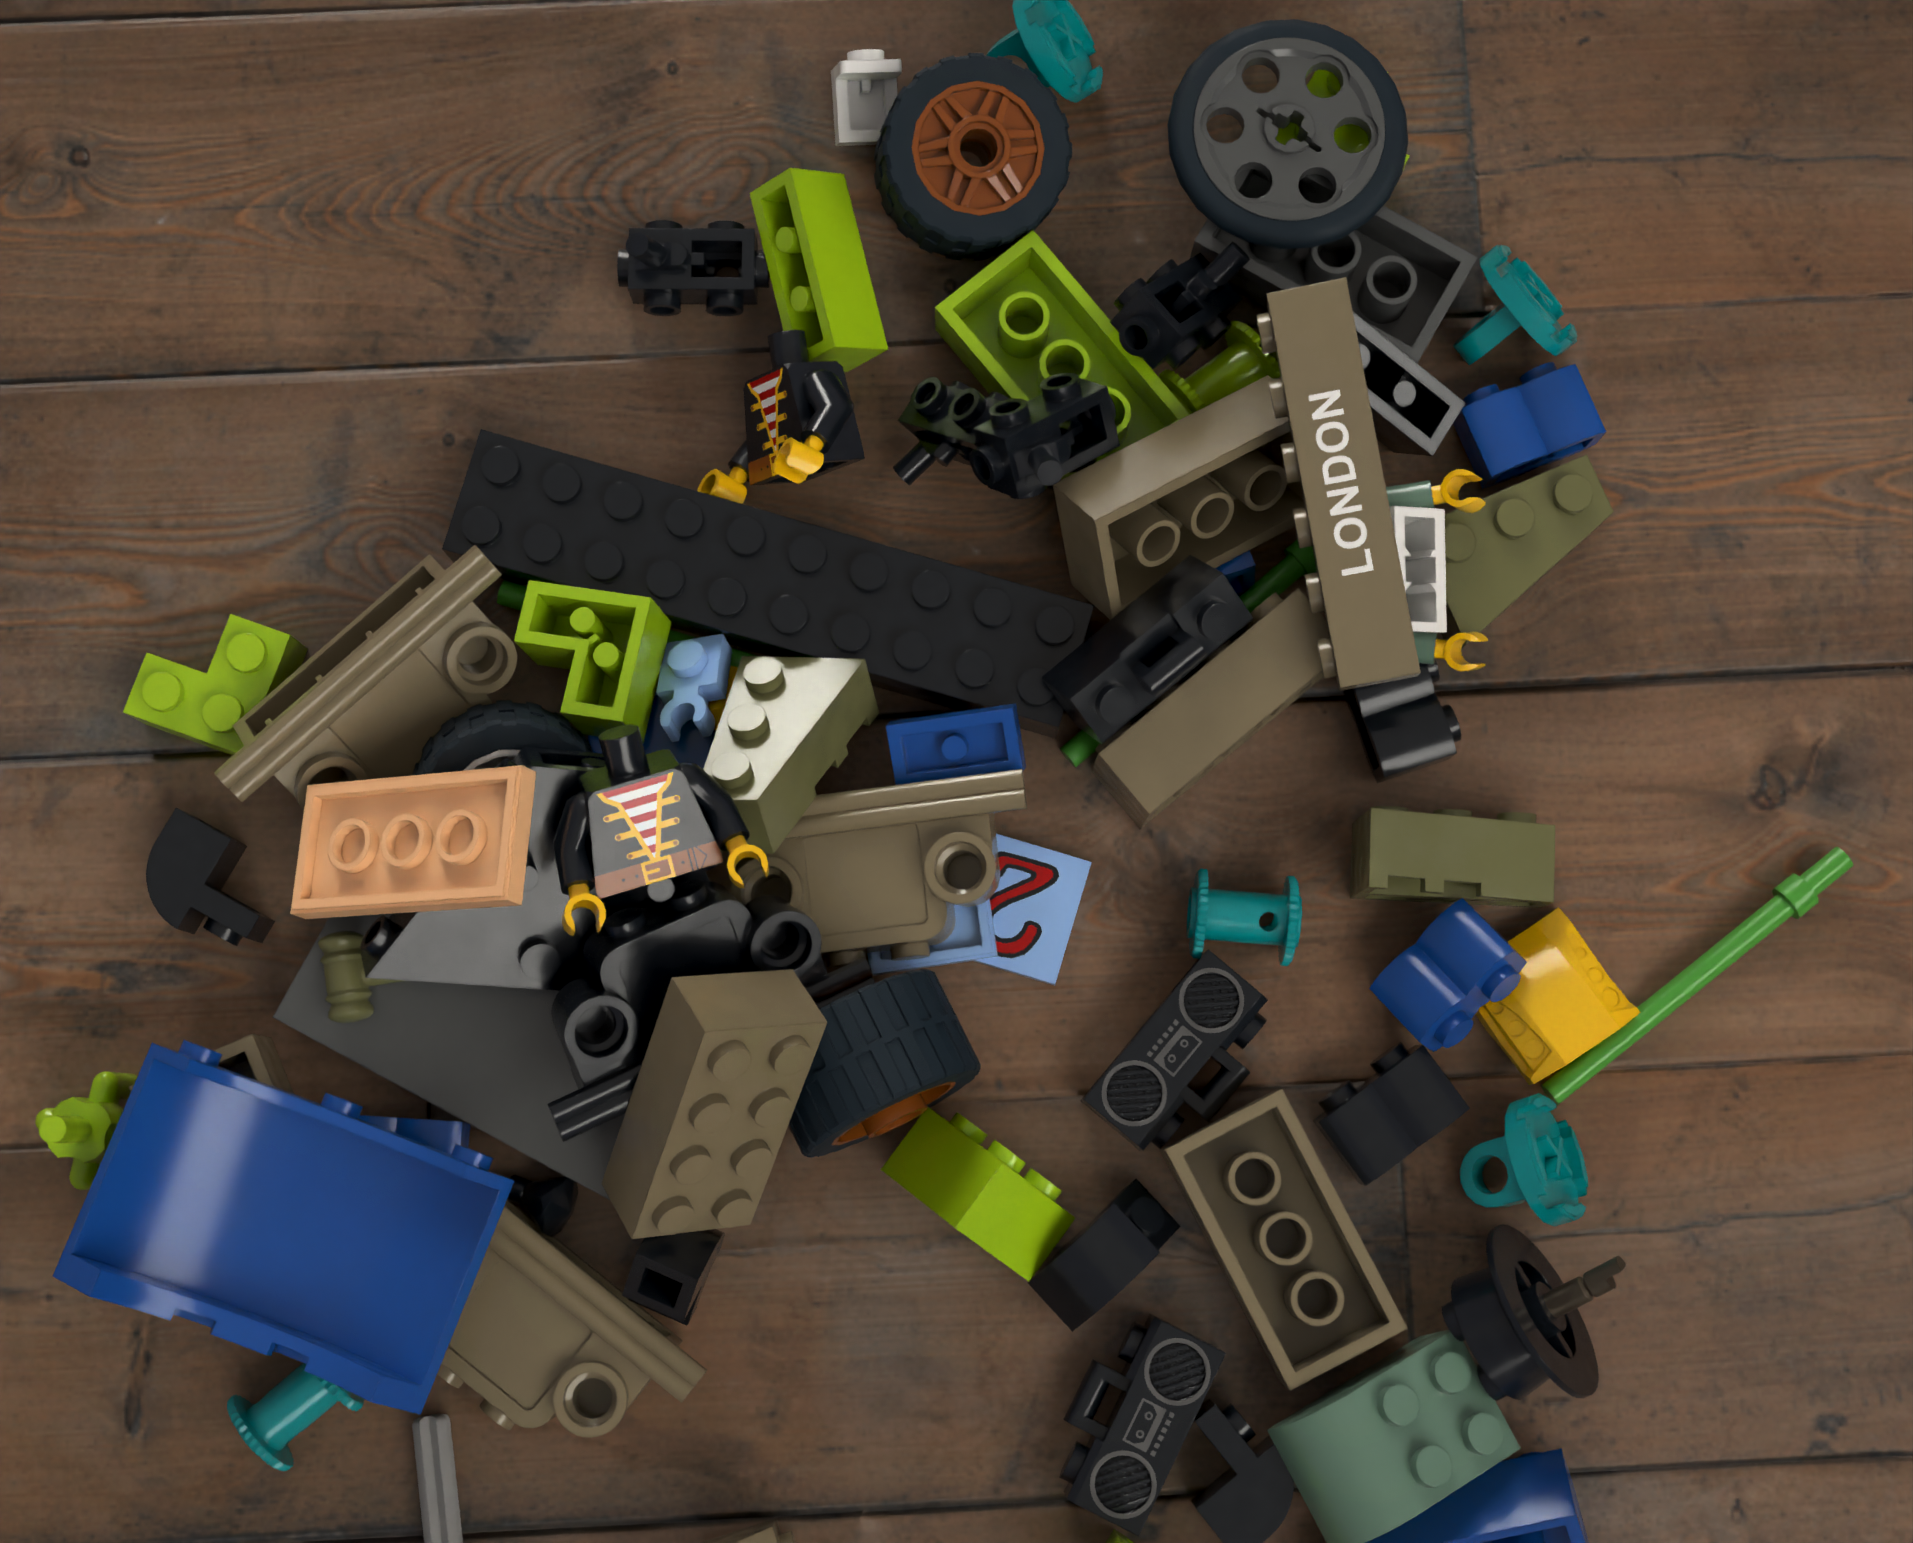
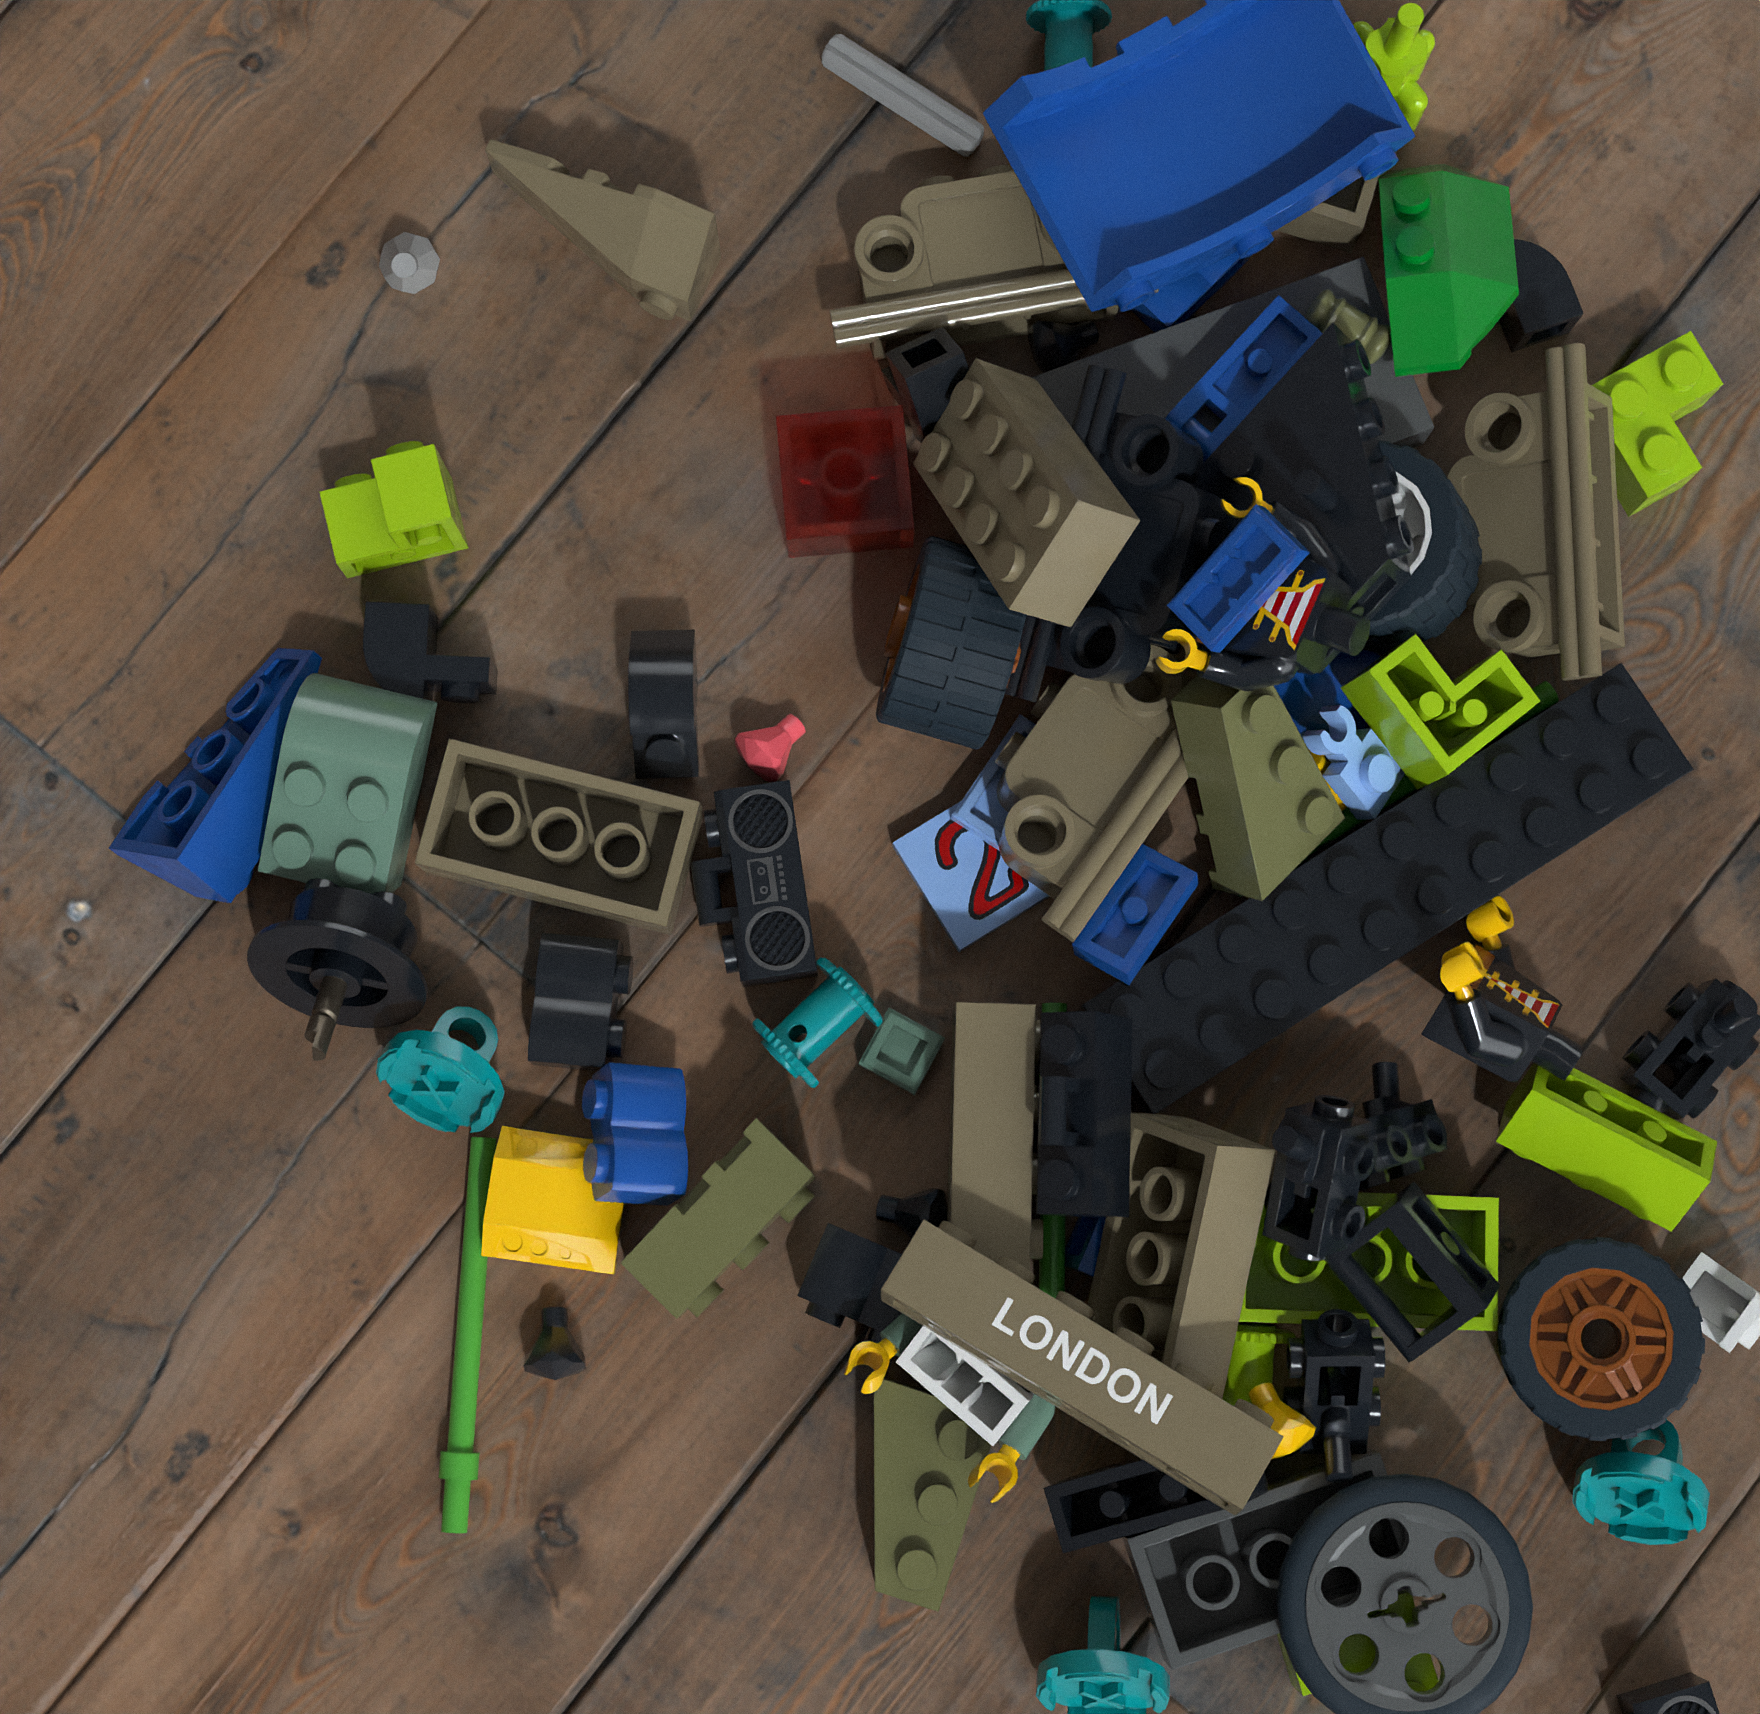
camera: 130 degrees right, 0 degrees up
(216, 951) = (1444, 263): none -> green wedge
(414, 843) = (1404, 435): light nougat tile -> none
(459, 1020) = (1245, 373): none -> blue plate
(652, 863) = (1238, 578): none -> blue plate
(807, 1268) = (845, 481): none -> clear red brick
(980, 1190) = (789, 648): lime brick -> none
(1019, 310) = (1439, 1254): none -> black tile
(1066, 1143) = (769, 748): none -> coral rock
(1136, 1448) = (508, 600): black piece -> none
(1204, 839) = (901, 1051): none -> sand green tile
(1238, 327) = (1287, 1422): none -> yellow rock
(1314, 720) = (912, 1210): none -> black rock
(1527, 424) = (1003, 1598): blue brick -> none
(1651, 900) = (555, 1349): none -> black rock

